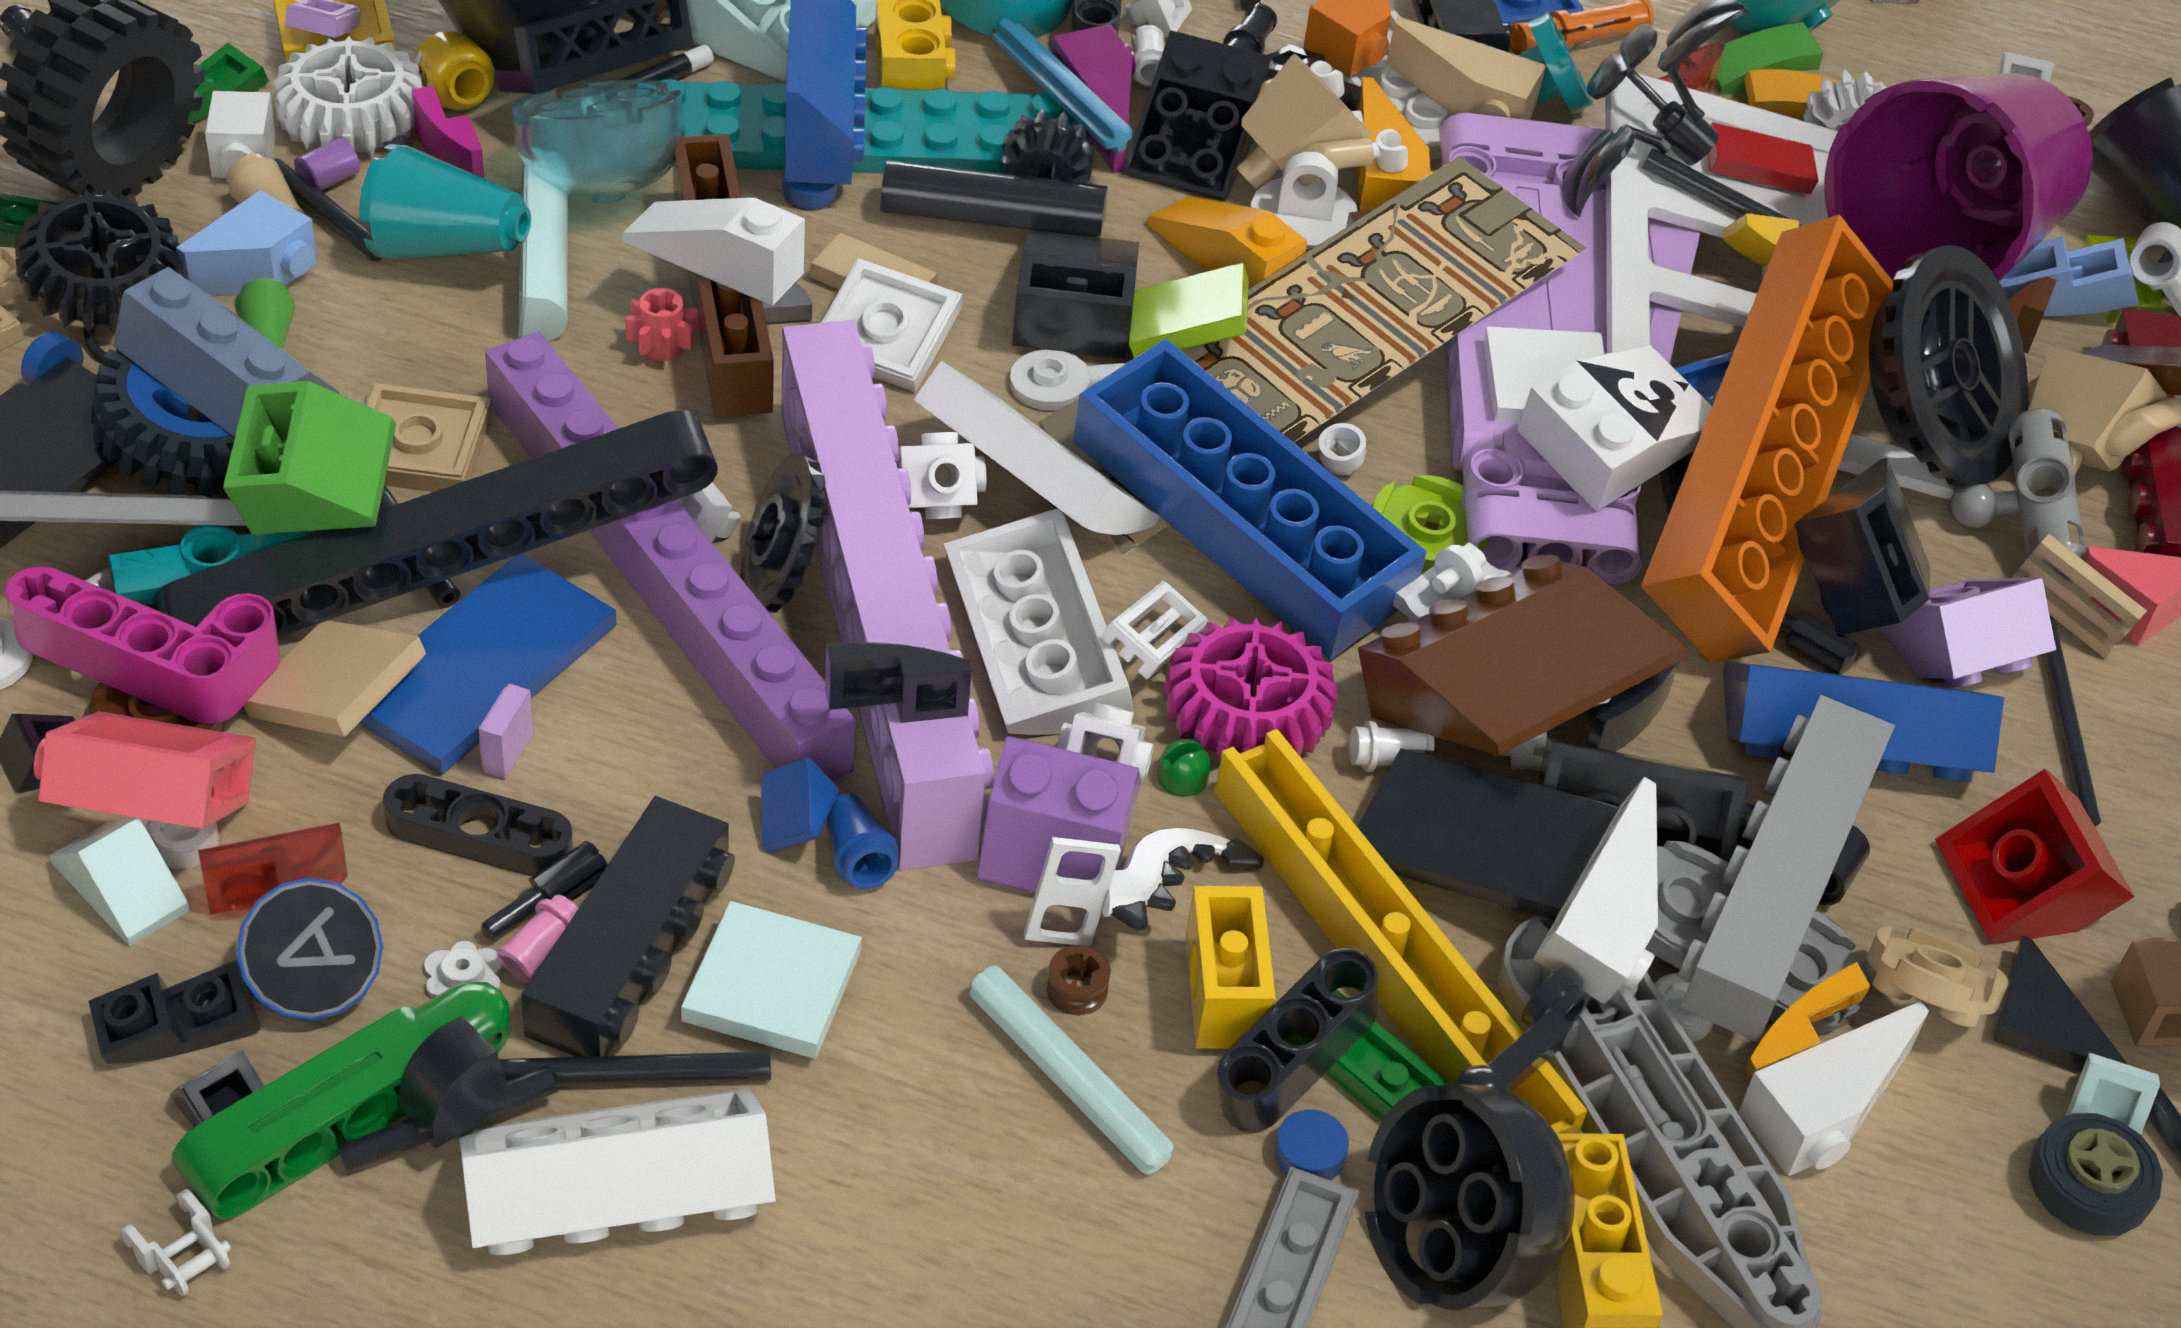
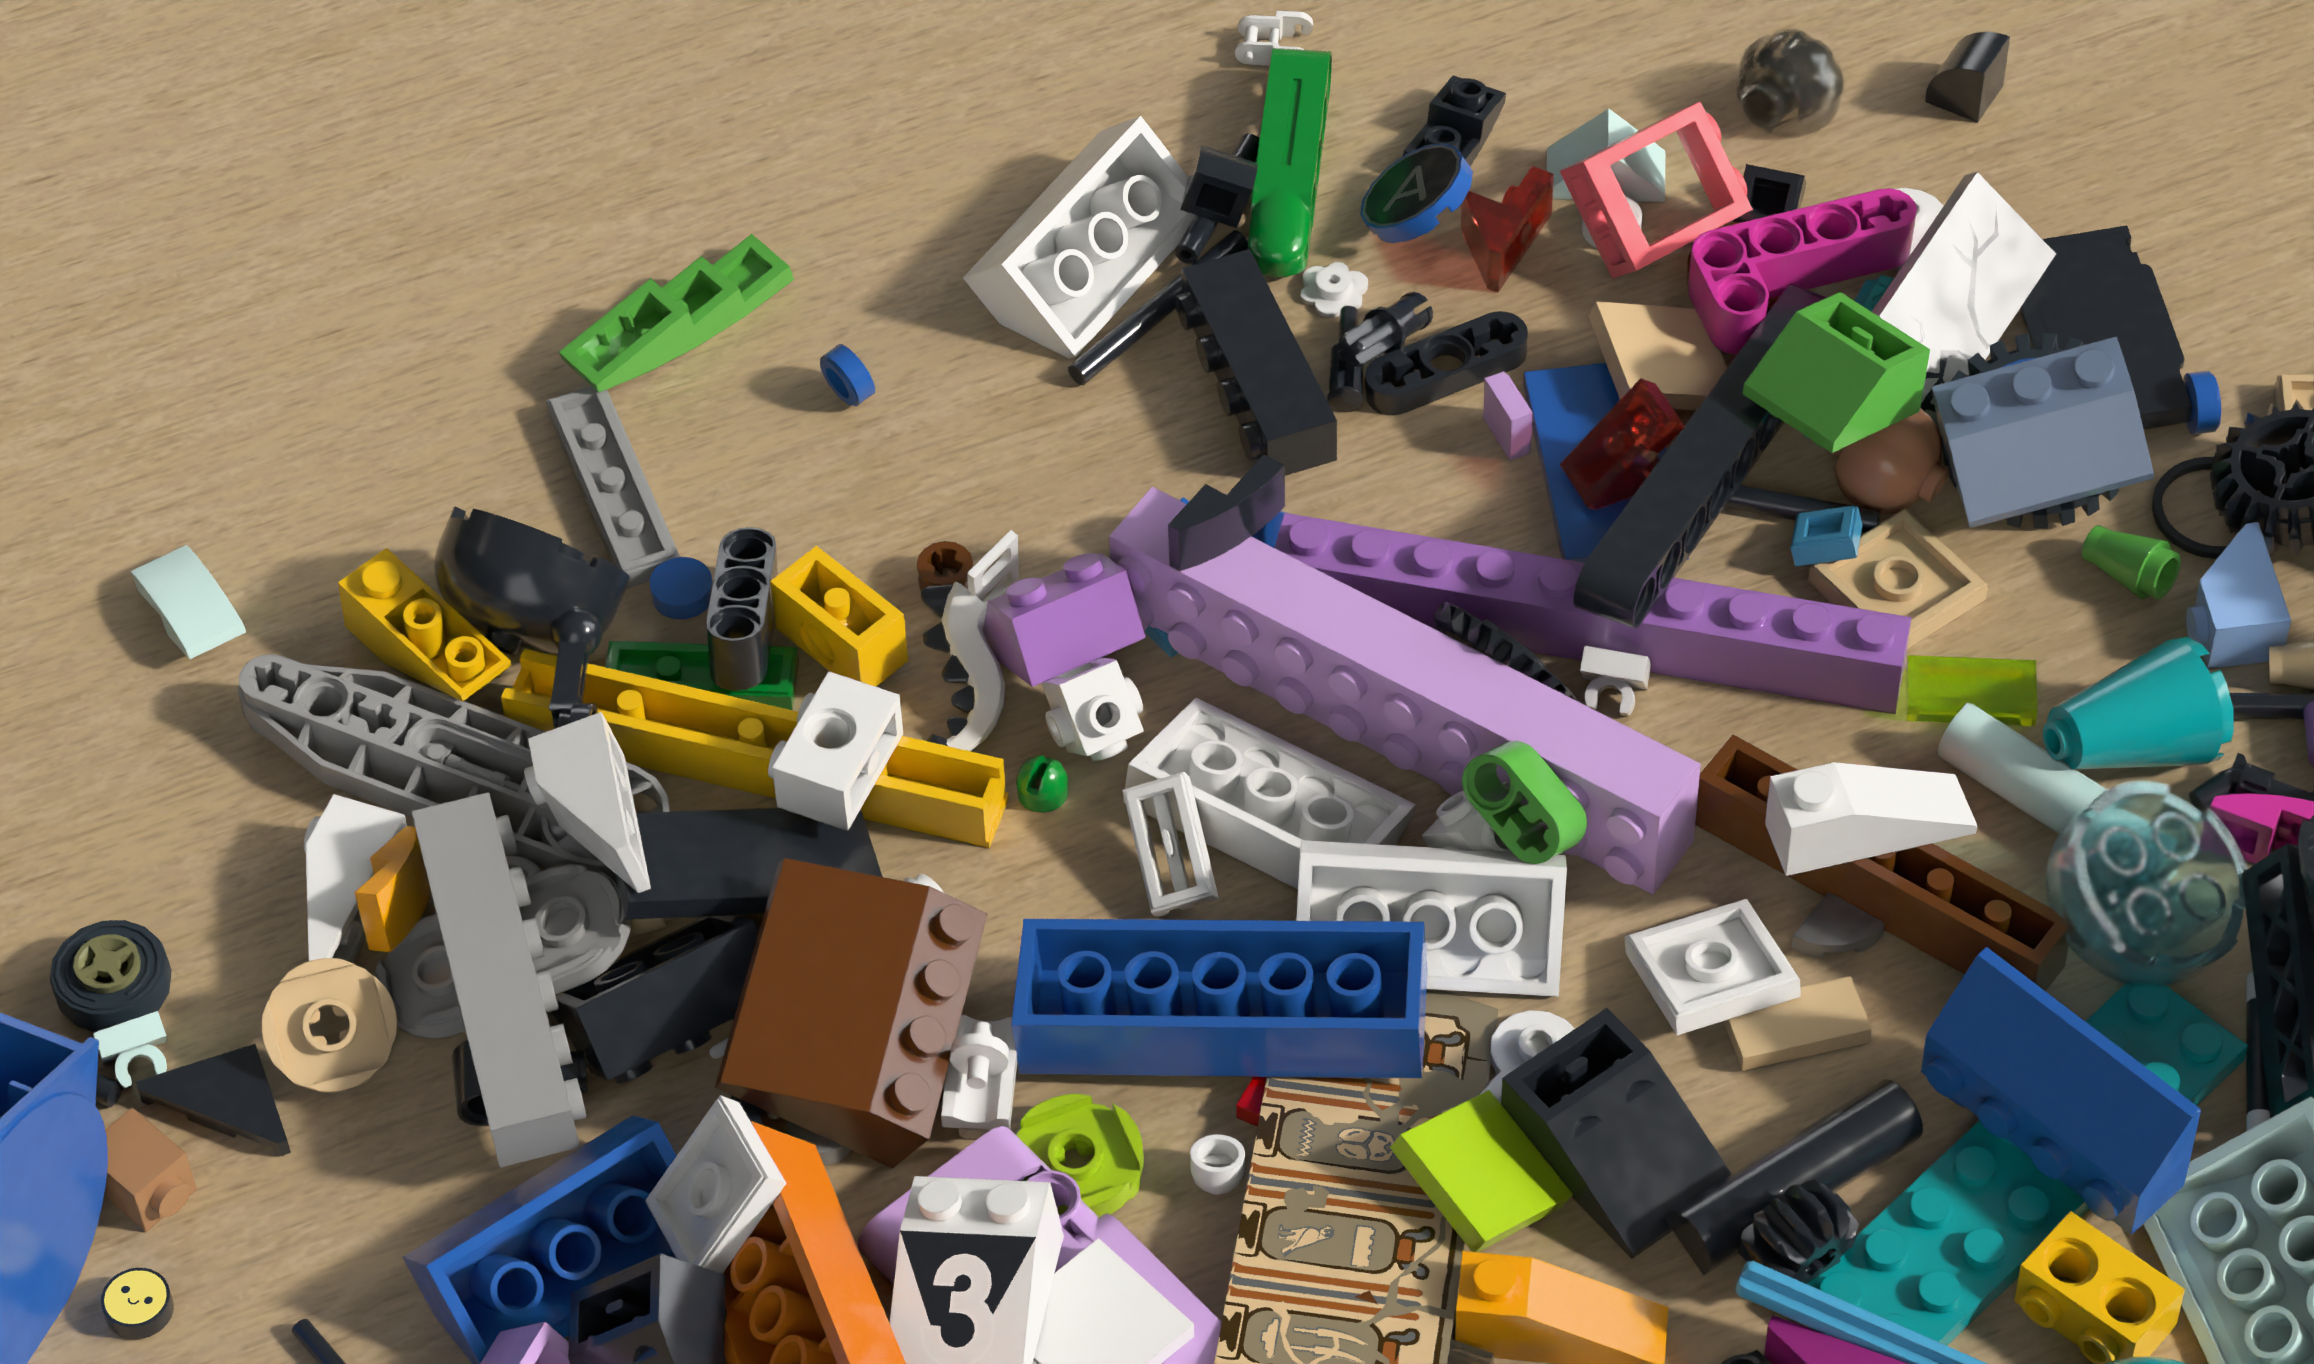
camera: 145 degrees right, 5 degrees up
(217, 1088) = (1363, 119): black slope -> none
(421, 472) = (1826, 535): none -> dark azure tile
(464, 335) = (1943, 685): none -> clear neon green tile
(486, 606) = (1622, 447): none -> clear red slope
(500, 864) = (1384, 329): none -> black axle
(532, 944) = (1308, 323): bright pink pin -> none
(771, 979) = (1133, 409): light aqua tile -> none
(922, 398) = (1522, 825): none -> bright green beam
(974, 1209) = (847, 375): none -> blue tile
(1071, 1070) = (887, 513): light aqua axle -> none
(1213, 681) = (1054, 843): dark pink gear -> none
(1362, 815) = (836, 750): none -> white brick
(1754, 579) = (716, 1188): none -> white tile
(2034, 863) = (311, 1211): red slope -> none

